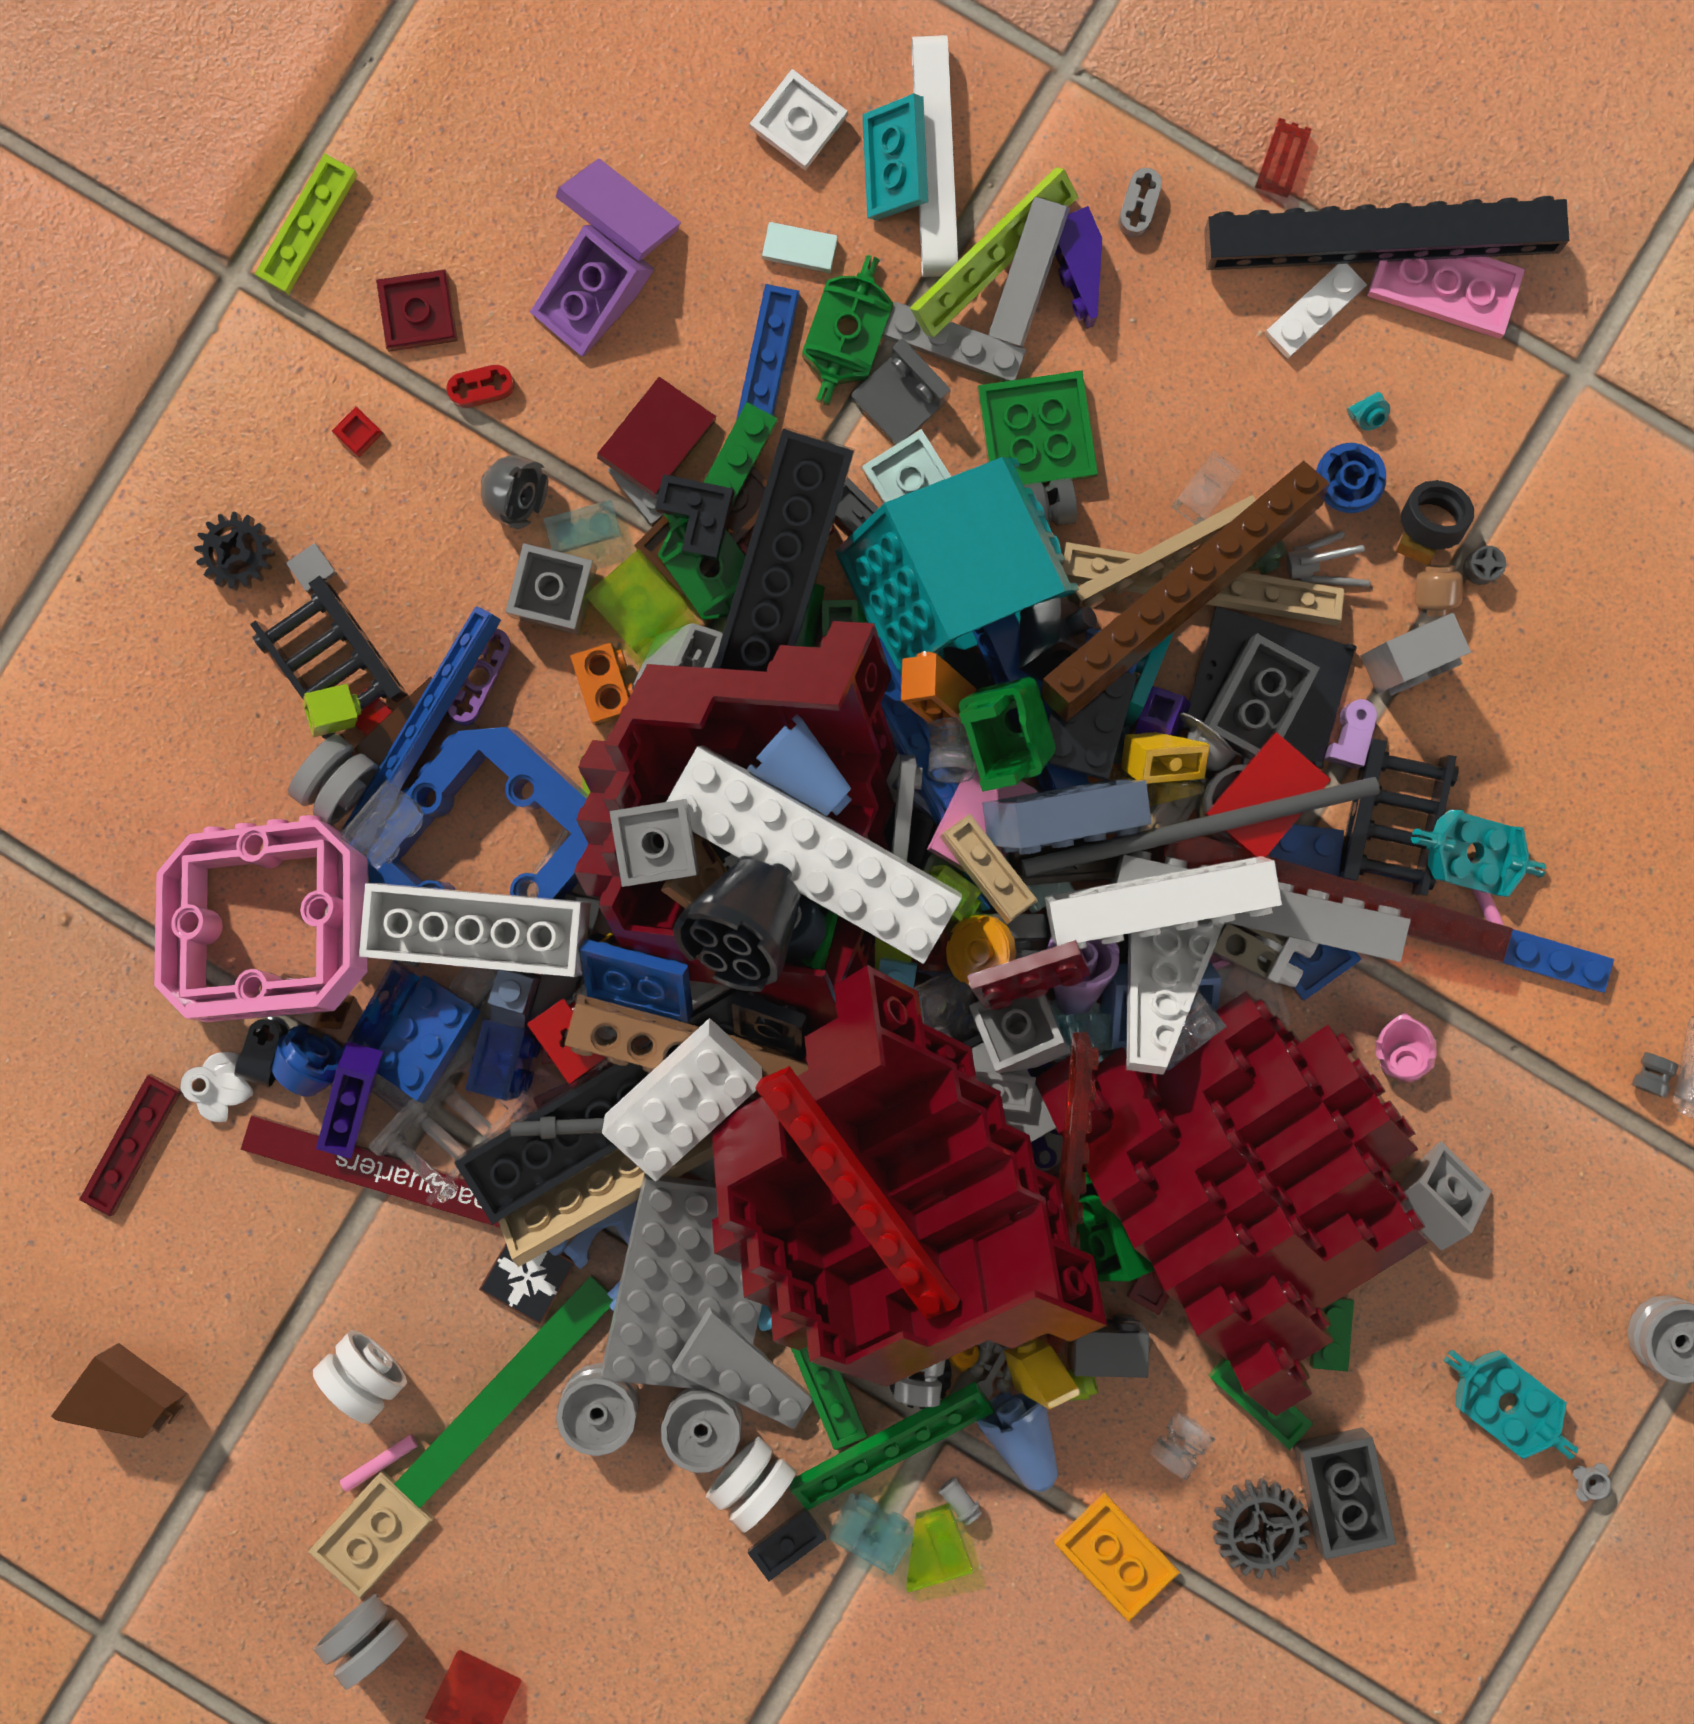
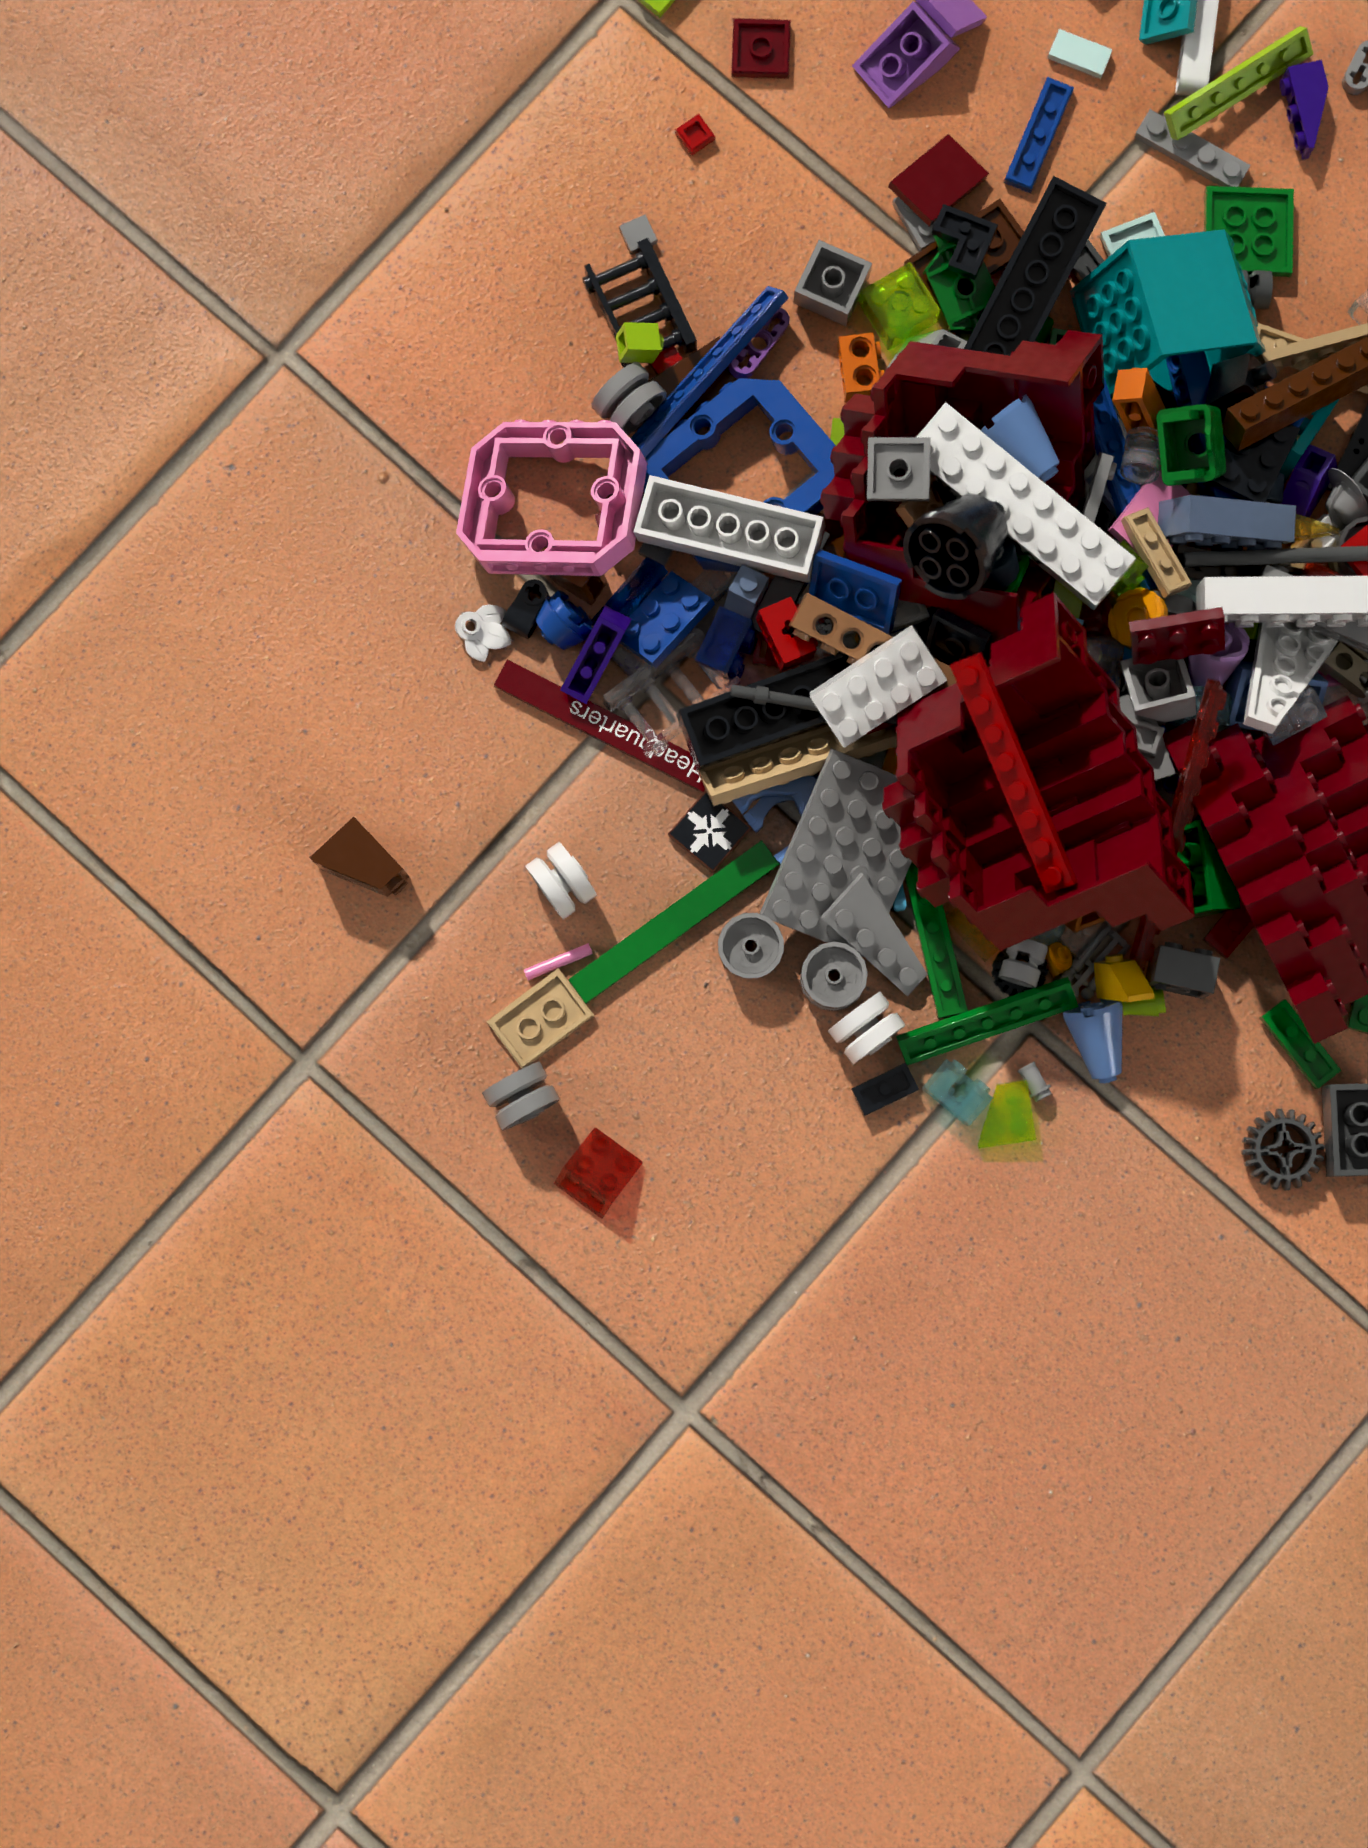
camera: 15 degrees right, 5 degrees down
(130, 1145) = (403, 666): dark red tile -> none
(228, 563) = (581, 221): black gear -> none
(383, 824) = (667, 438): clear bracket -> none
(479, 377) = (801, 116): red beam -> none
(513, 490) = (815, 199): dark grey cylinder -> none
(582, 527) = (866, 239): clear light blue plate -> none
(742, 449) = (1009, 198): green plate -> none
(847, 357) = (1102, 145): green plate -> none
(902, 393) = (1144, 180): dark grey bracket -> none
(1029, 271) = (1264, 102): light grey tile -> none
(1116, 1556) = (1157, 1153): light orange tile -> none
(1164, 757) = (1312, 499): yellow slope -> none
(1175, 1456) = (1229, 1067): clear wheel -> none

